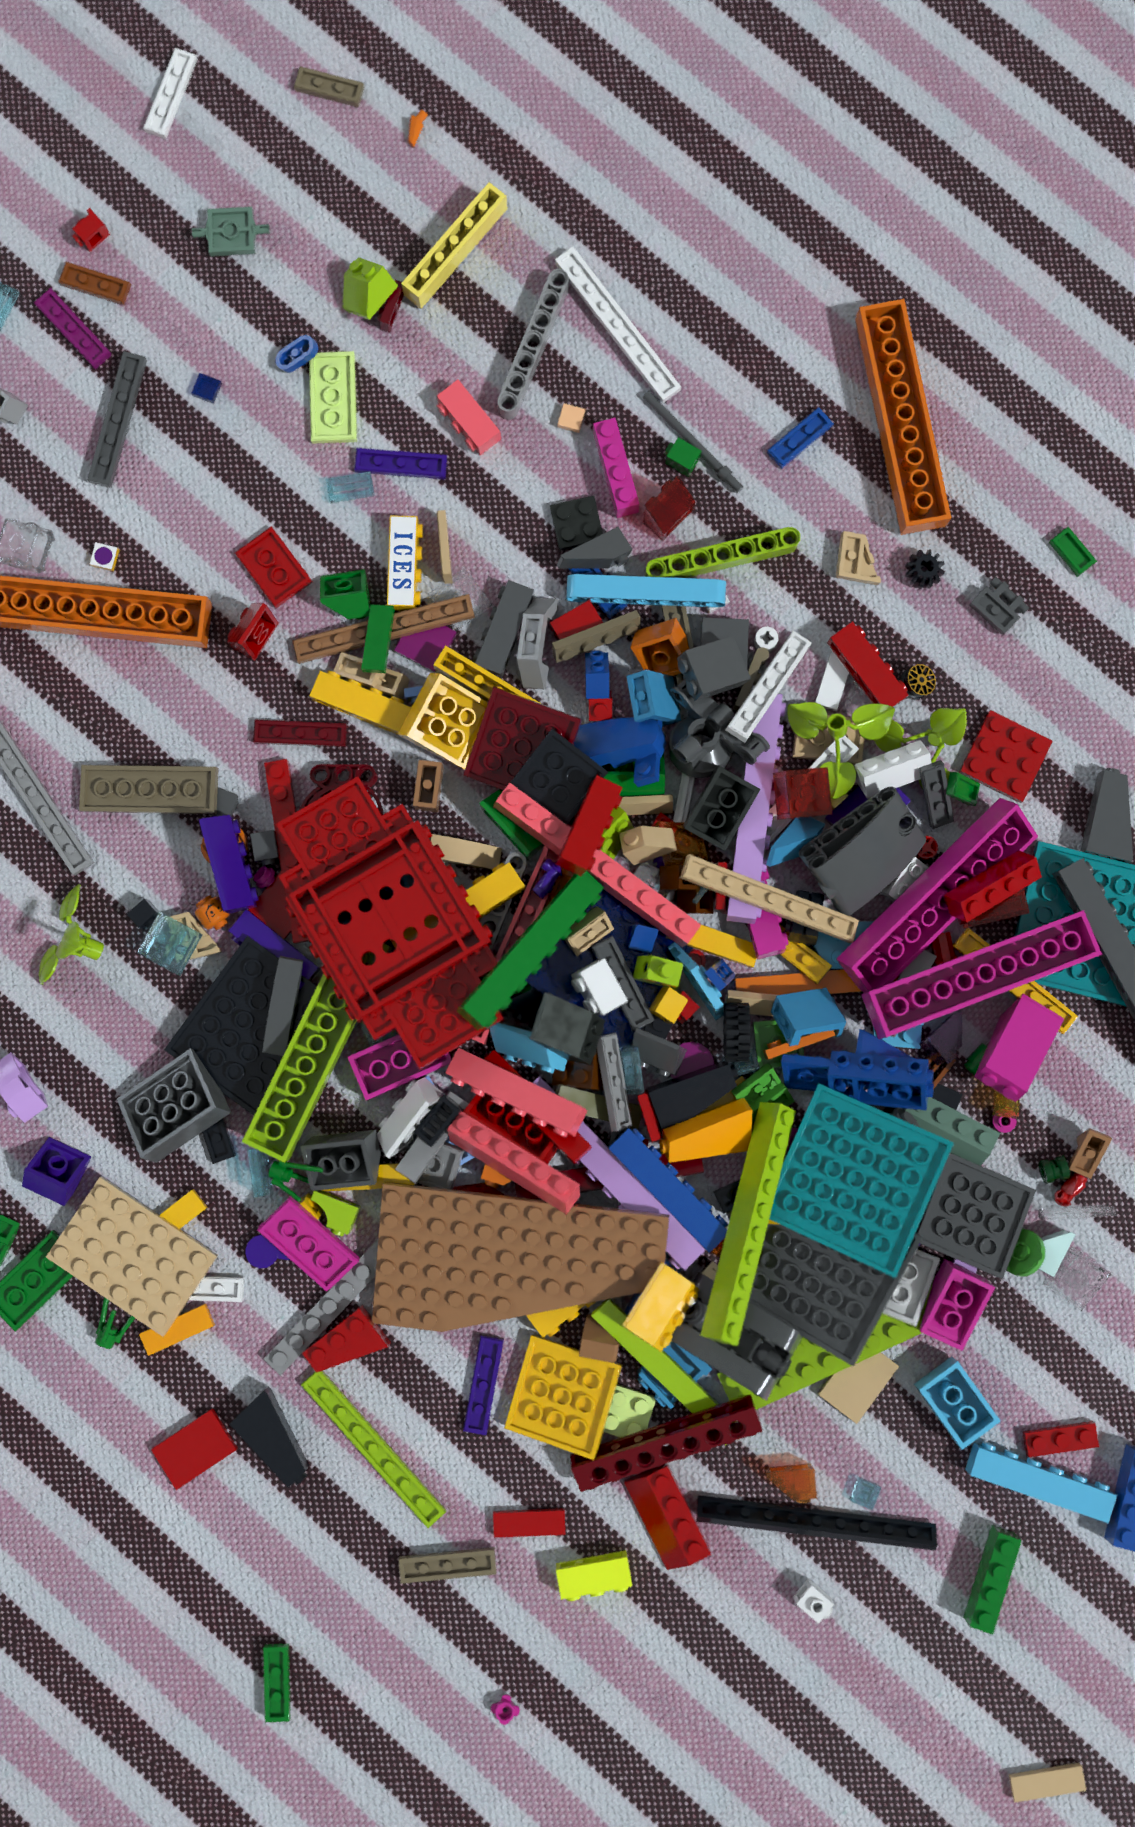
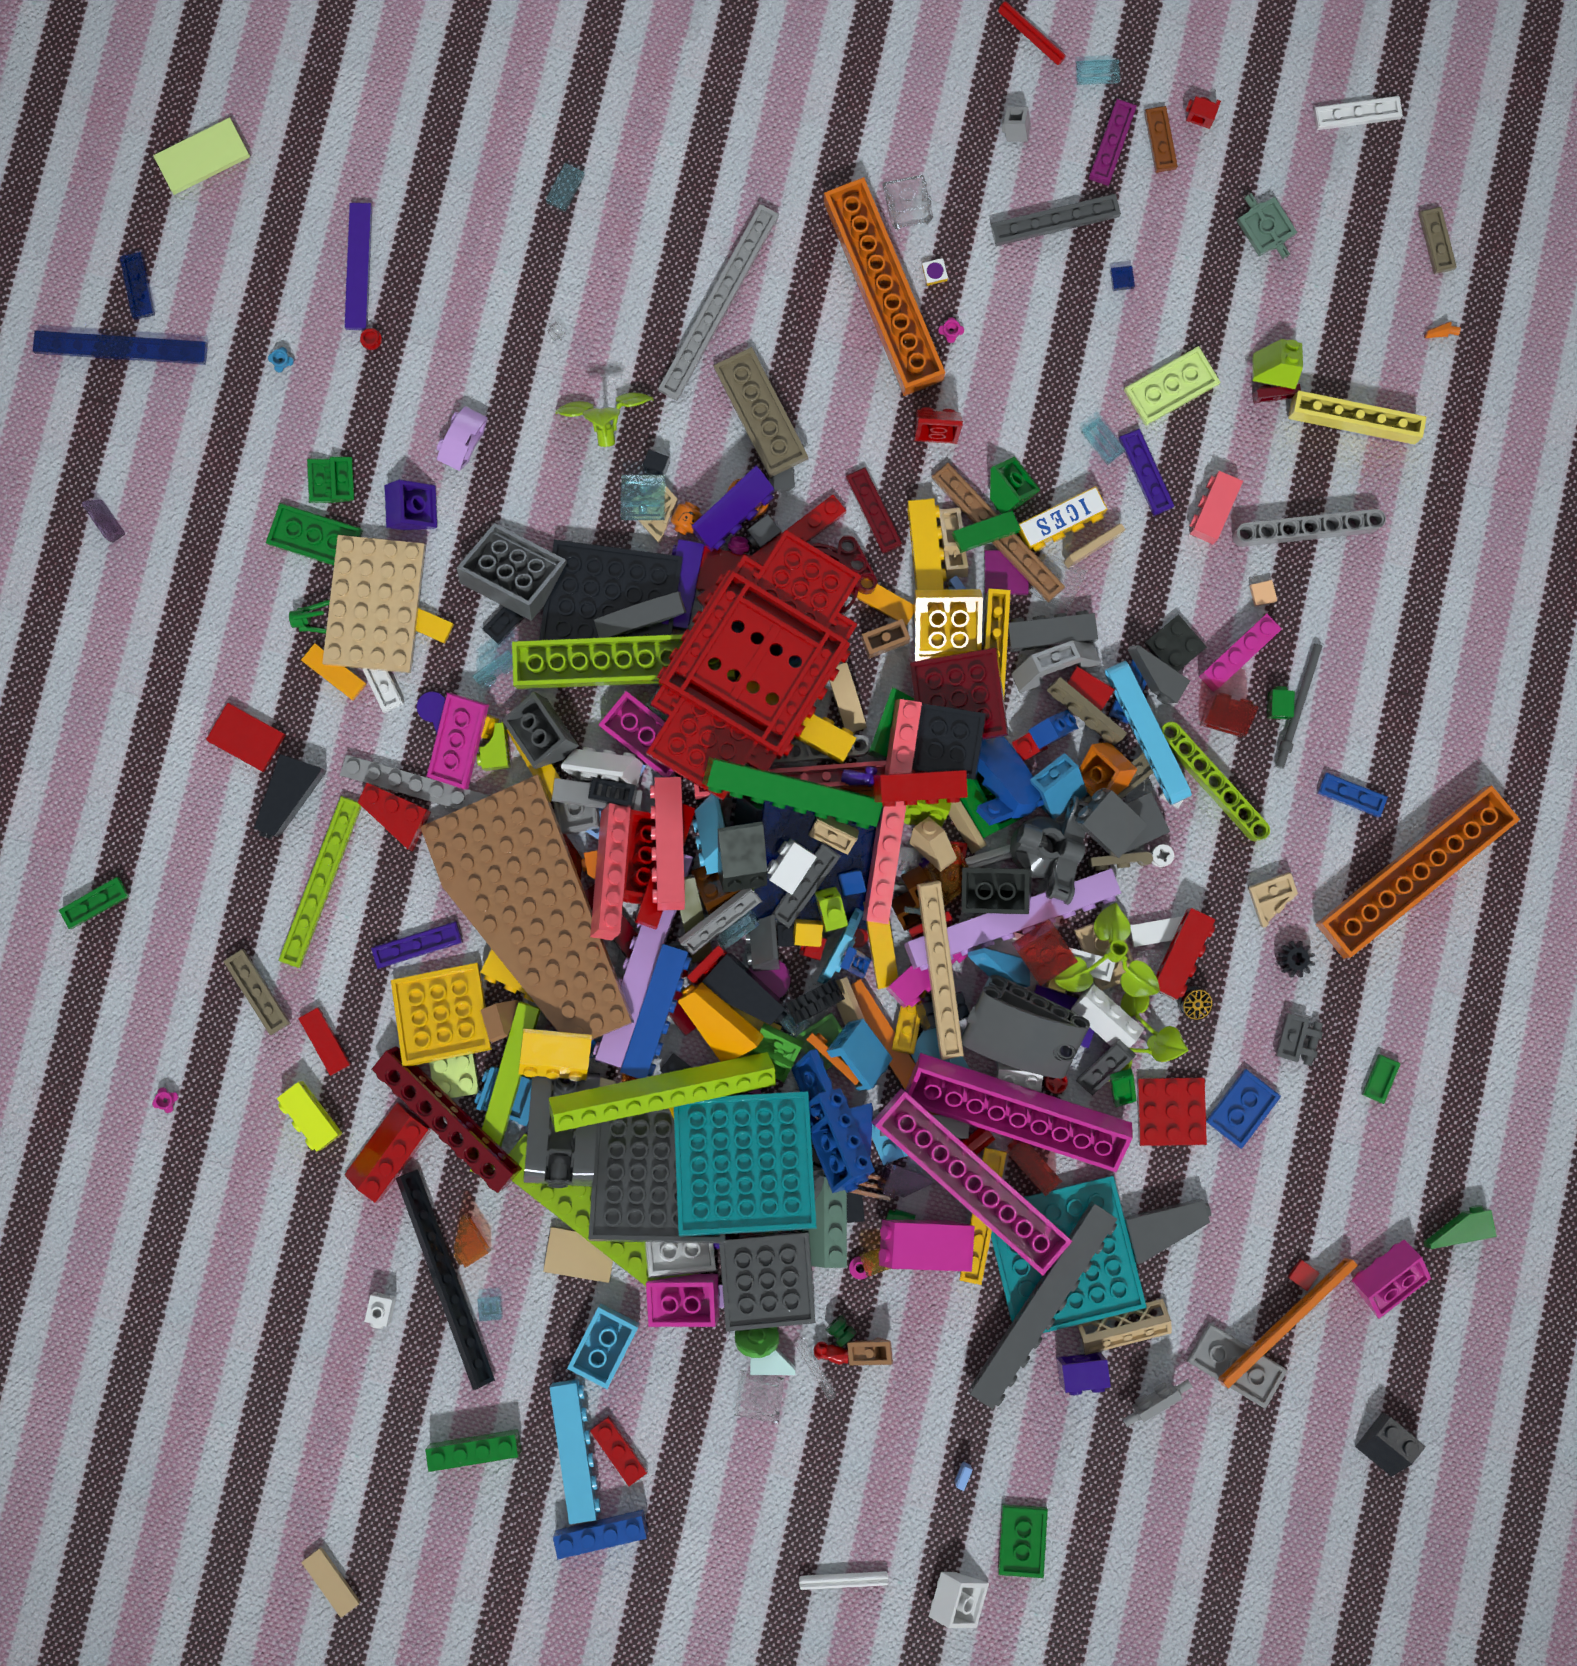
camera: 60 degrees right, 0 degrees up
(162, 568) = (951, 323): none -> dark pink plate
(273, 567) = (1001, 414): red tile -> none
(282, 1172) = (504, 687): green plant -> none
(296, 352) = (1192, 337): blue plate -> none
(394, 766) = (887, 602): none -> light orange tile
(618, 325) = (1365, 590): white plate -> none
(768, 686) = (1121, 877): white tile -> none
(992, 886) = (1051, 1153): red brick -> none
(1036, 690) = (1243, 1108): none -> blue tile

